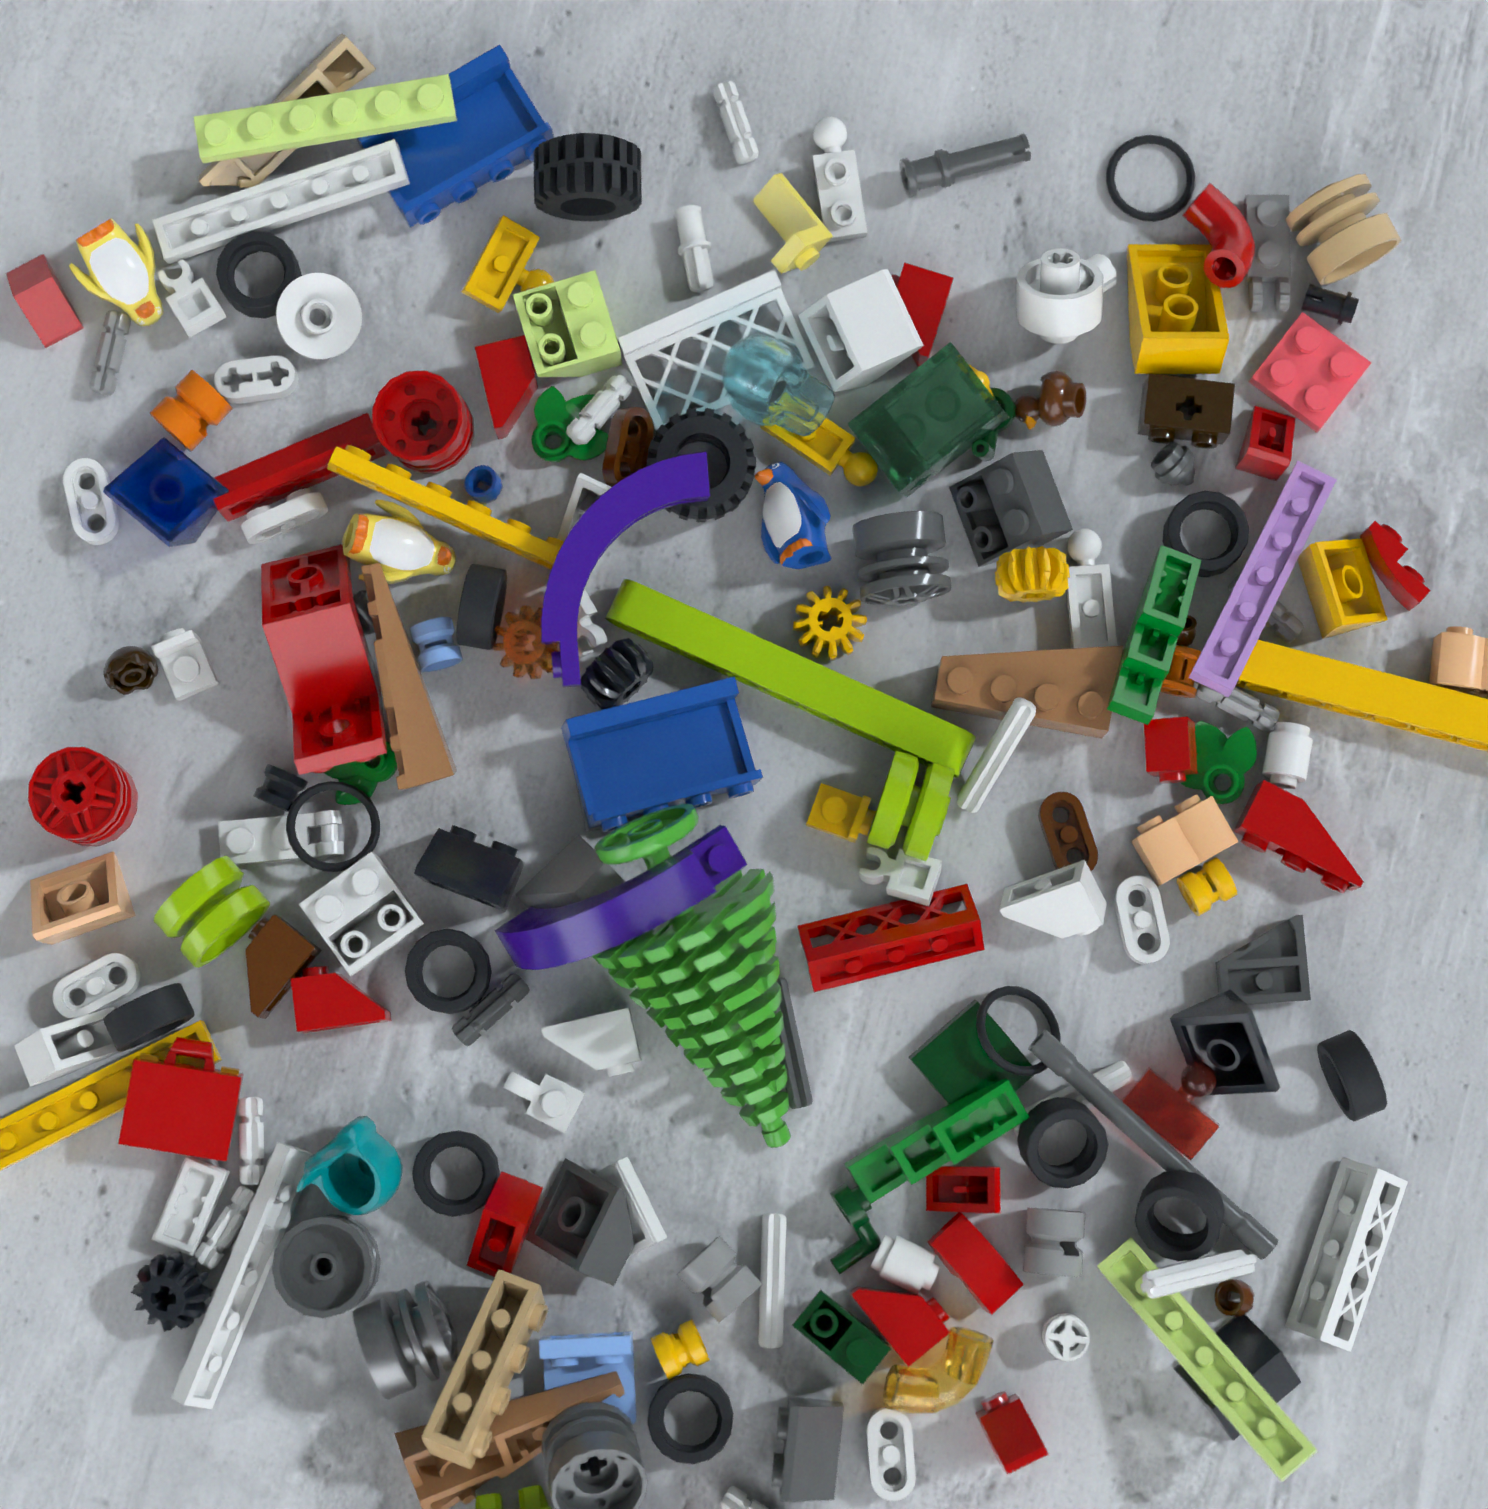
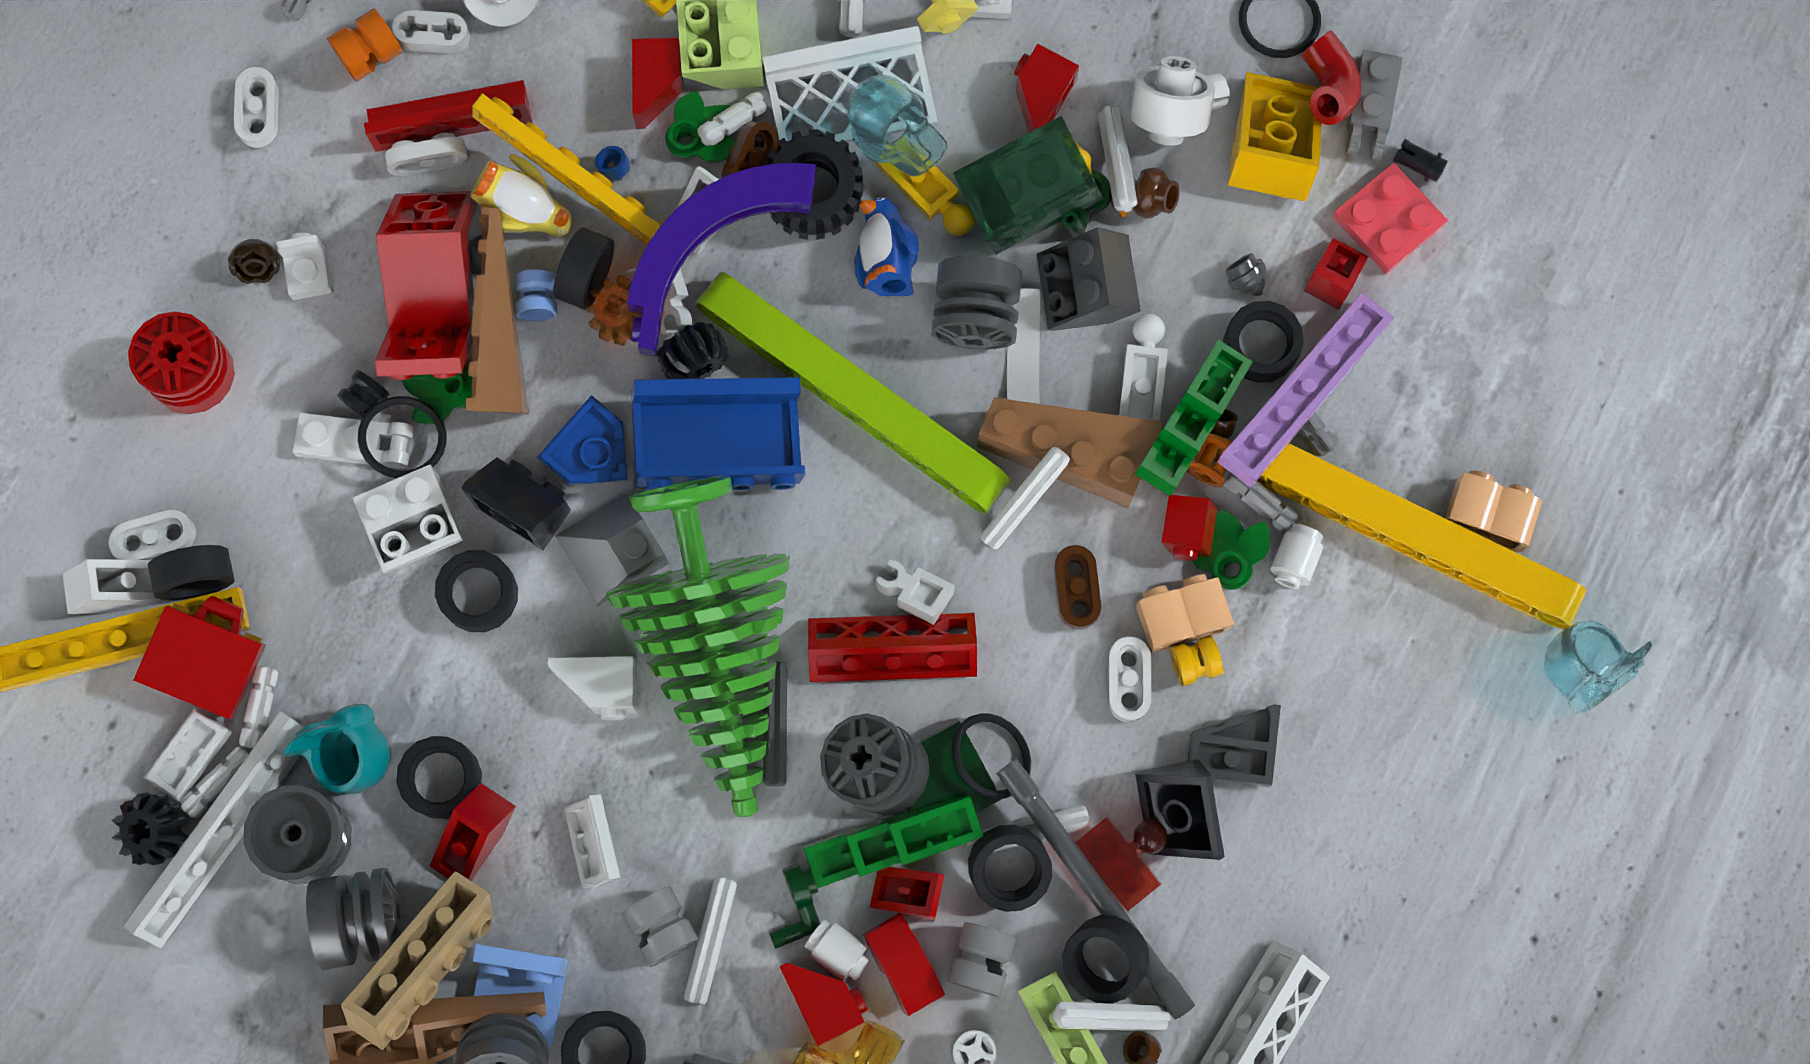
camera: 10 degrees right, 5 degrees down
(79, 899) = (156, 458): light nougat slope -> none
(167, 494) = (324, 112): clear blue slope -> none
(211, 911) = (271, 488): lime wheel -> none
(273, 959) = (319, 550): reddish brown slope -> none
(332, 1002) = (361, 597): red slope -> none
(411, 402) = (563, 76): red wheel -> none
(490, 1009) = (507, 634): dark grey axle -> none
(528, 794) = (588, 447): none -> blue plate
(551, 1101) = (542, 730): white plate -> none
(584, 1224) = (547, 849): dark grey slope -> none
(588, 927) = (648, 557): dark purple arch -> none
(680, 1349) = (604, 985): yellow wheel -> none
(823, 609) = (896, 337): yellow gear -> none
(840, 813) = (871, 524): yellow bracket -> none
(842, 1336) = (761, 1004): dark green slope -> none
(860, 331) = (984, 95): white slope -> none
(912, 806) = (930, 524): lime wheel -> none
(927, 1073) = (892, 777): none -> dark grey wheel
(960, 603) = (1024, 353): none -> white sticker
(1013, 369) = (1117, 159): none -> white axle
(1032, 574) = (1094, 343): yellow gear -> none
(1057, 902) = (1054, 645): white slope -> none
(1207, 402) = (1288, 224): dark brown brick -> none
(1290, 828) = (1285, 624): red slope -> none
(1340, 224) = (1444, 94): tan wheel -> none
(1341, 586) = (1379, 414): yellow slope -> none
(1352, 1075) = (1296, 862): black tyre -> none
(1383, 551) = (1425, 390): red slope -> none

